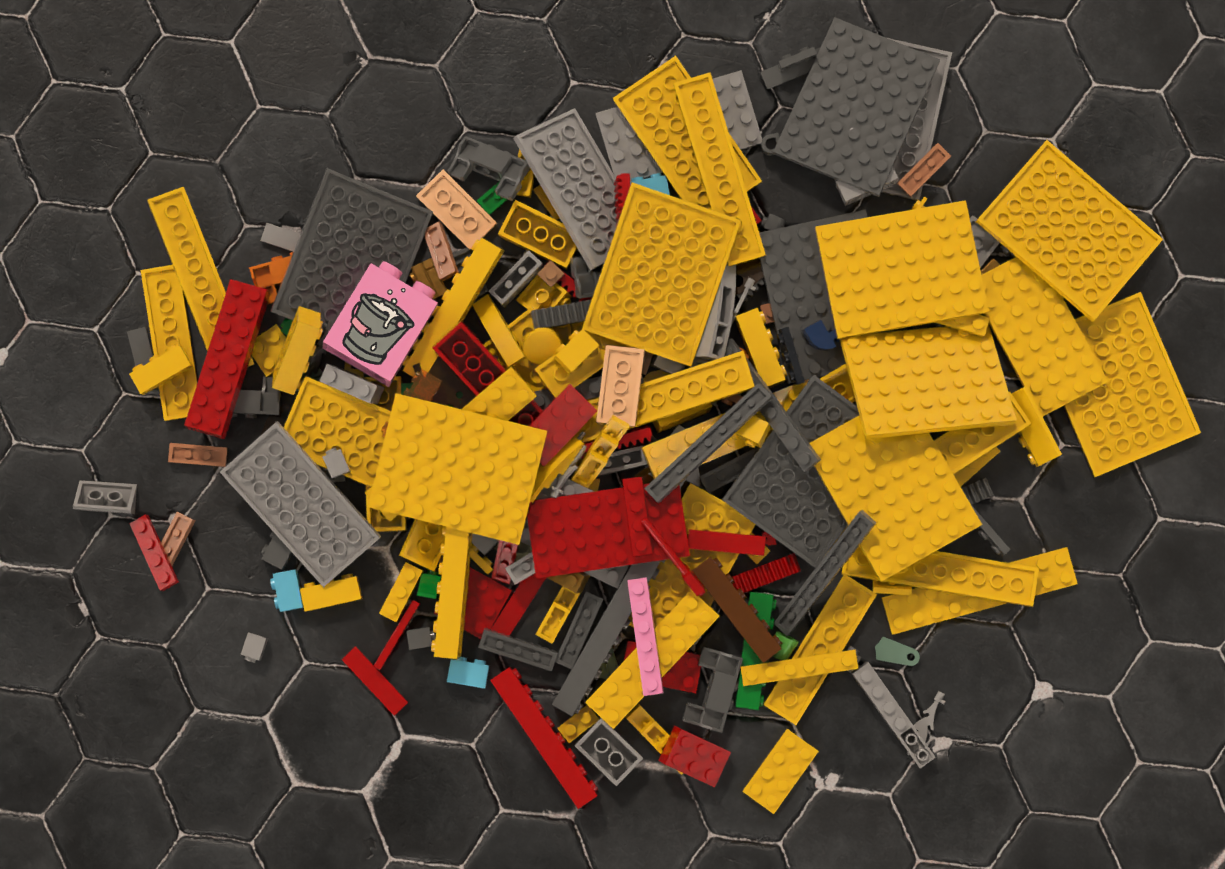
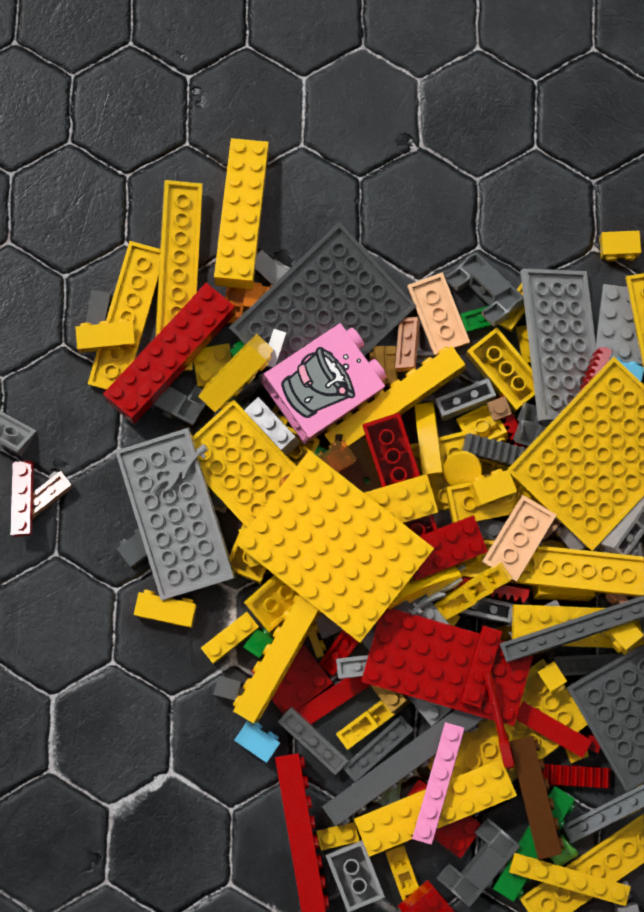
camera: 25 degrees right, 5 degrees down
(198, 454) = (103, 428): nougat plate -> none
(233, 198) = (241, 214): none -> yellow brick
(254, 647) = (72, 626): light grey brick -> none
(282, 464) = (176, 469): none -> light grey piece
(287, 590) = (126, 589): medium azure brick -> none
(320, 306) = (276, 343): none -> white sticker
(336, 463) = (225, 490): light grey brick -> none
(375, 680) = (168, 709): red tile -> none
(396, 635) = (208, 675): red tile -> none
(594, 70) = (620, 245): none -> yellow brick
(705, 496) = (552, 677): none -> yellow brick

